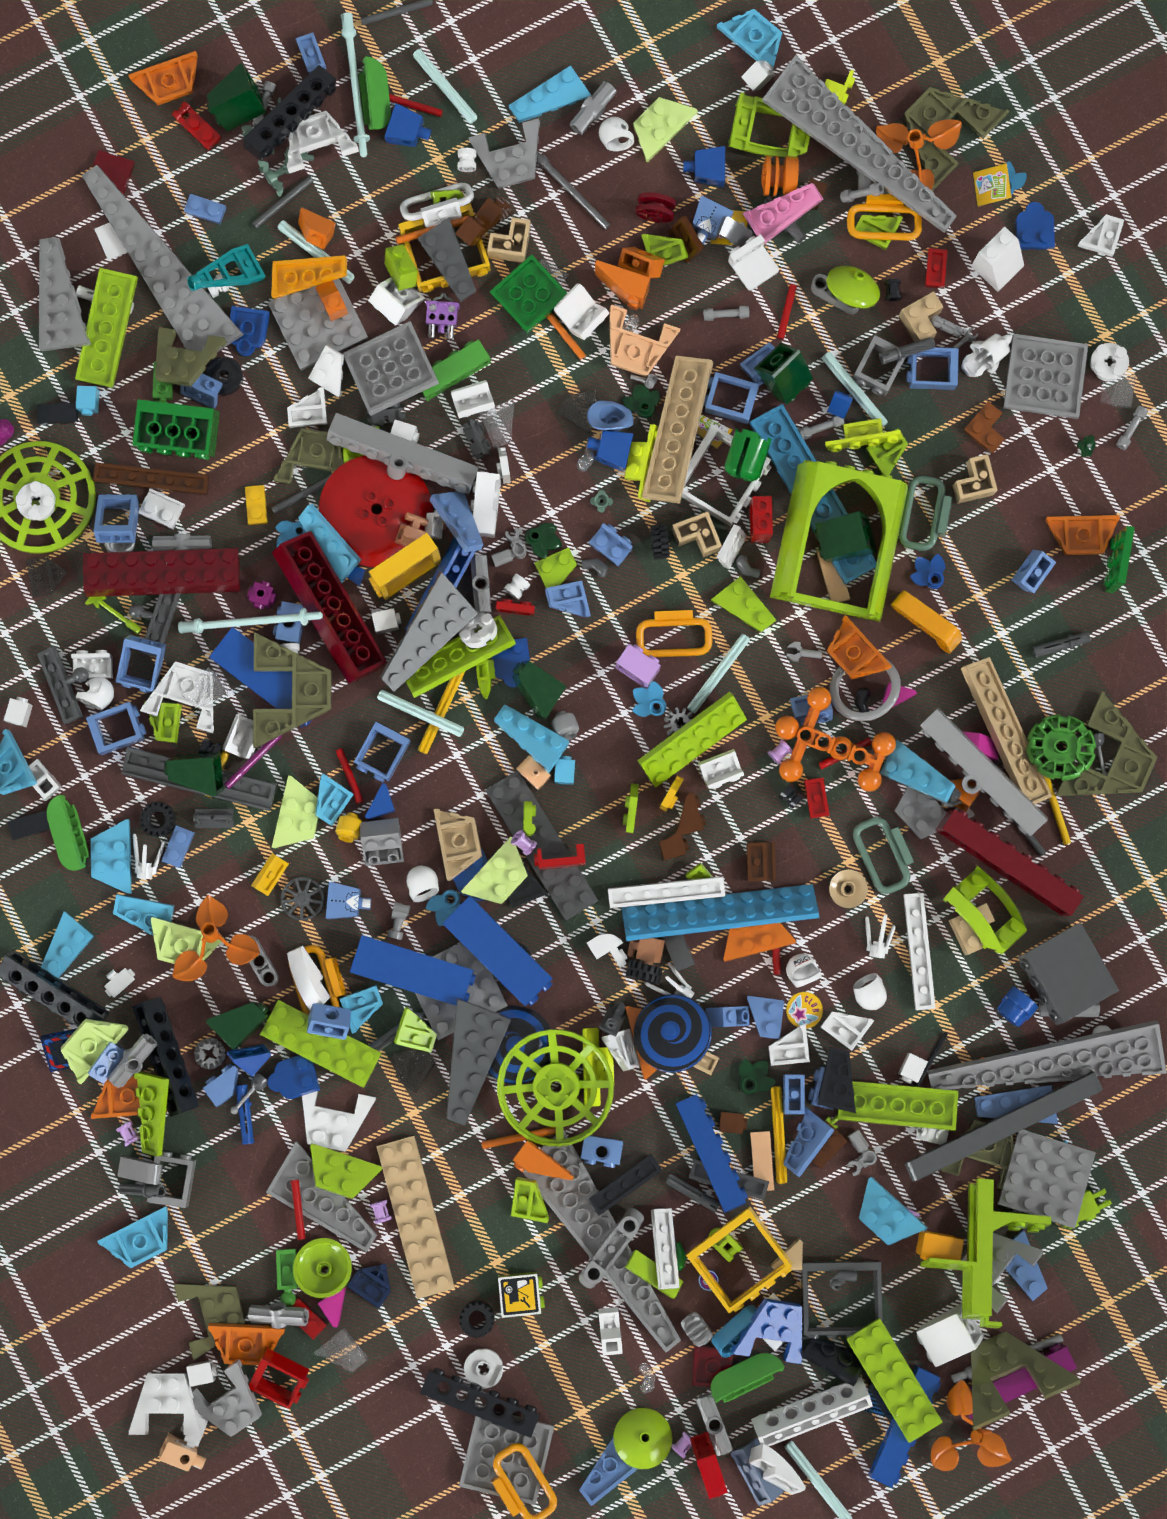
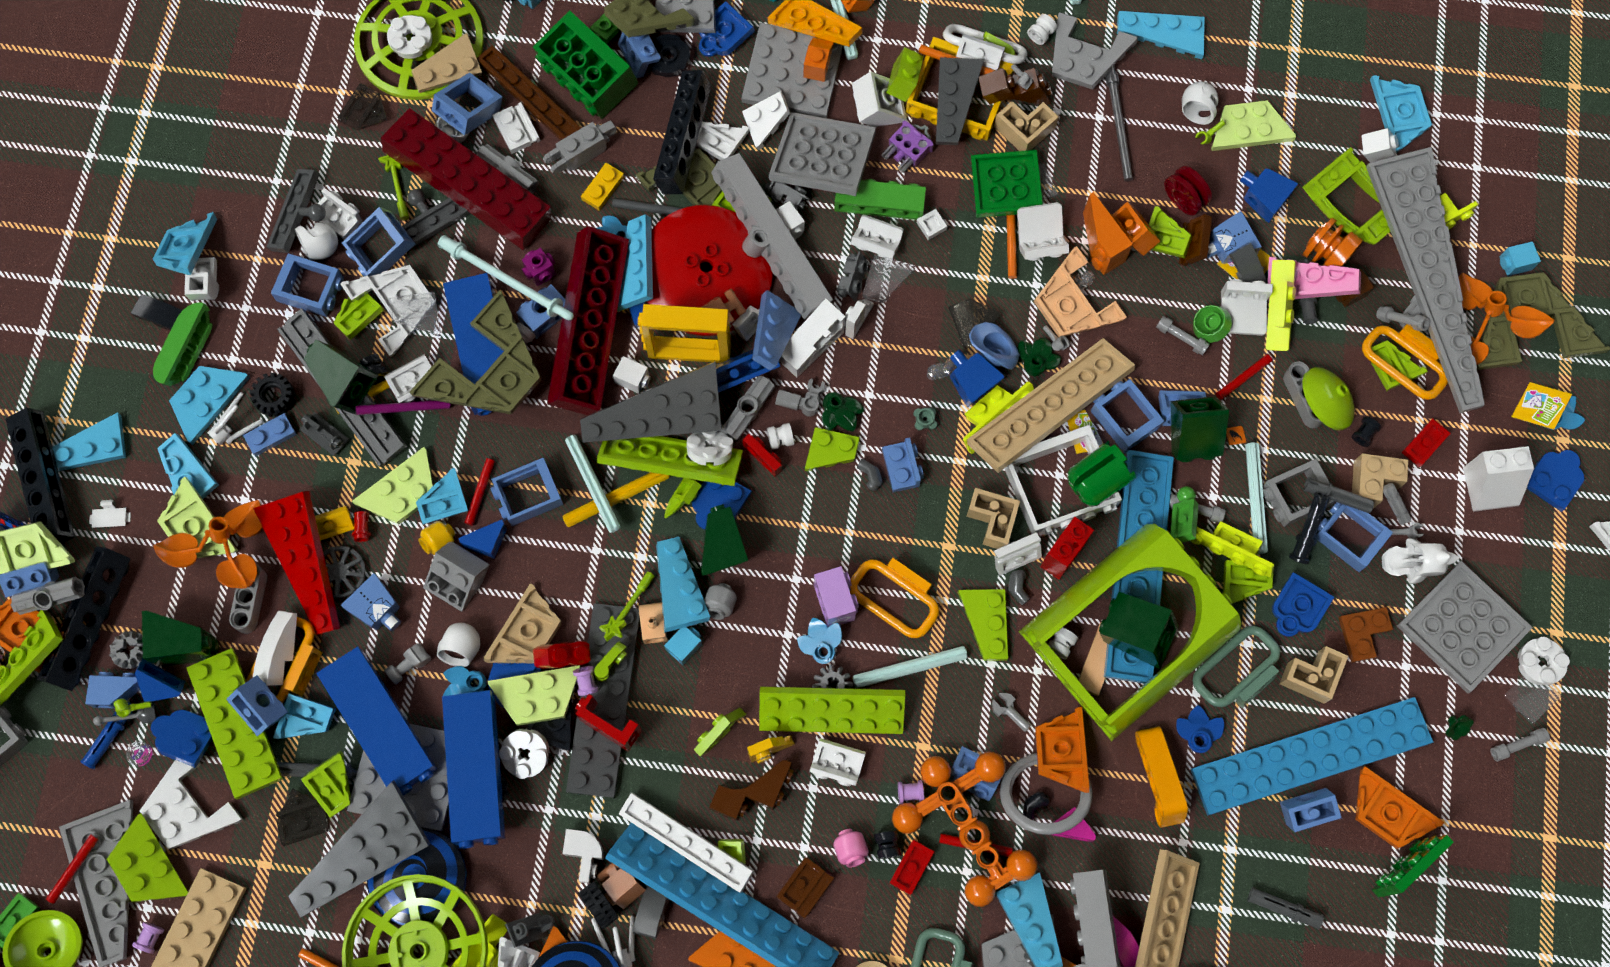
camera: 40 degrees right, 10 degrees down
(18, 711) = (236, 206): white brick -> none
(79, 501) = (447, 65): none -> tan wing
(219, 488) = (580, 146): none -> light grey hinge
(244, 1091) = (123, 709): none -> lime hand
(263, 902) = (297, 543): none -> red wing
(274, 1110) = (139, 753): none -> clear tile
(283, 426) = (682, 132): none -> black brick
(295, 862) = (361, 531): none -> red pin
(489, 212) = (1024, 80): none -> light grey hand
(494, 838) = (561, 654): none -> red brick
(501, 361) = (931, 224): none -> white plate
(512, 794) = (614, 626): none -> lime piece
(520, 928) = (538, 753): none -> white plate
(569, 599) = (820, 484): medium blue wing -> none
(593, 108) = (1196, 66): light grey piece -> none
(637, 152) = (1208, 134): none -> lime hand
(659, 541) = (950, 496): black tyre -> none
(739, 290) = (1212, 323): none -> bright green hat
(770, 815) = (850, 848): none -> bright pink head
(776, 244) = (1280, 305): none -> neon yellow bracket
(804, 585) = (1062, 642): none -> white wheel
(810, 356) = (1235, 435): none -> orange sticker
(819, 439) = (1185, 515): none -> bright green plate
(840, 404) = (1231, 498): blue slope -> none
(906, 394) = (1306, 538): none -> black pin
(907, 88) = (1519, 258): none -> medium azure brick
(933, 442) = (1299, 606): none -> blue plate
(1009, 535) = (1311, 756): none -> dark azure plate

